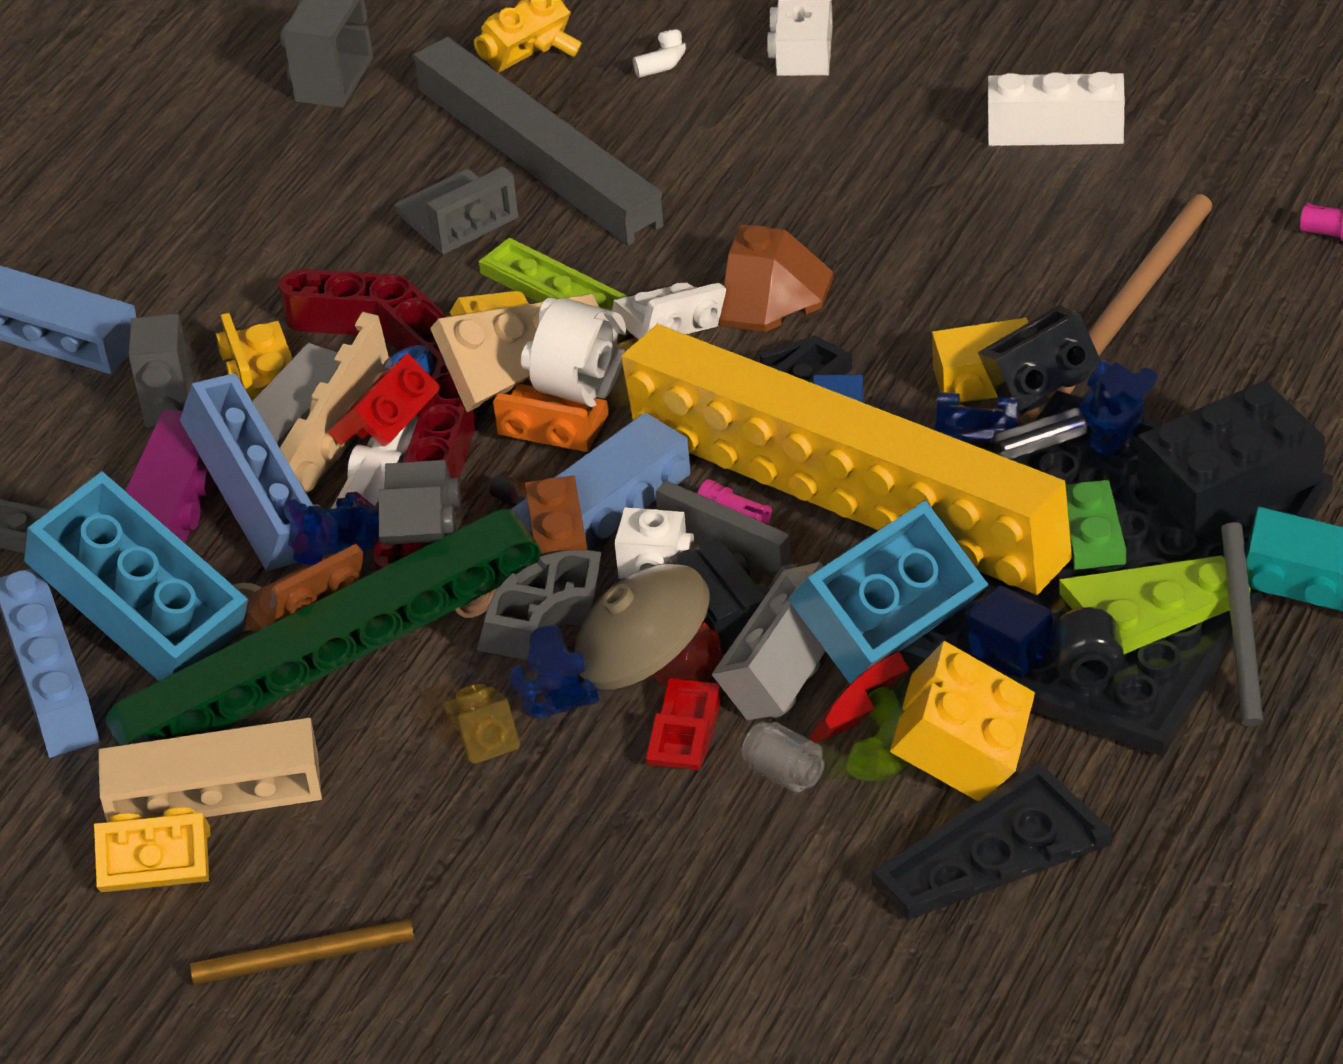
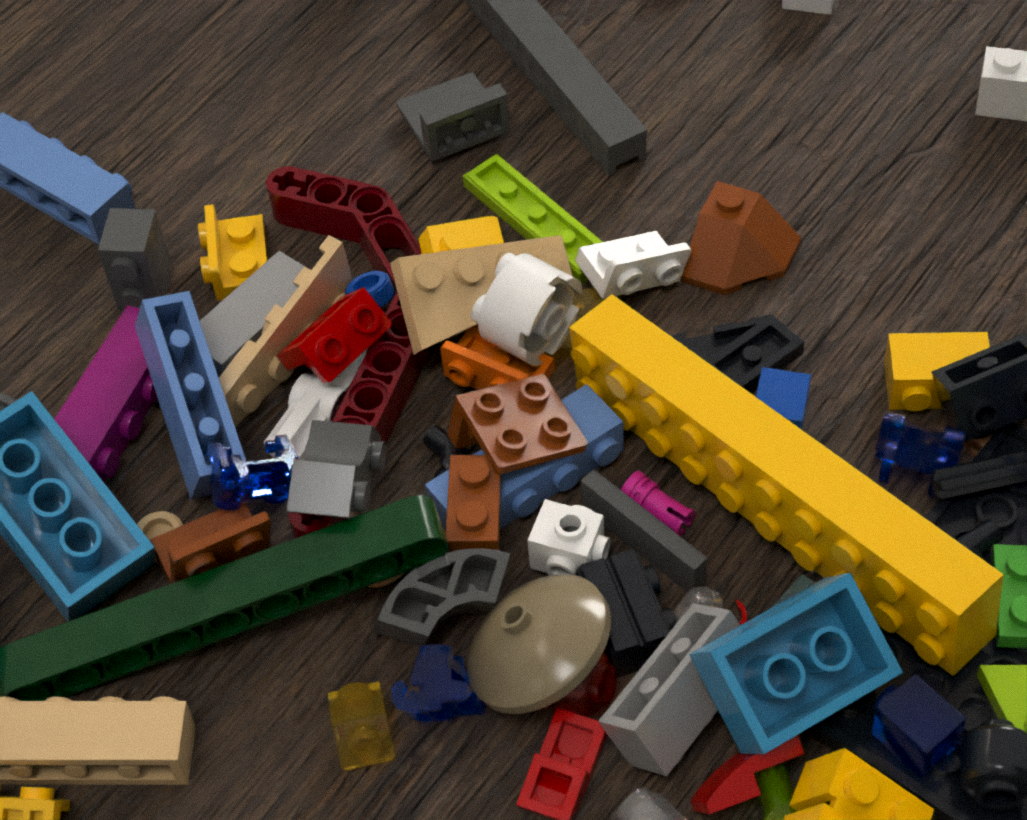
camera: 10 degrees right, 10 degrees up
(580, 450) = (516, 424): none -> dark orange bracket

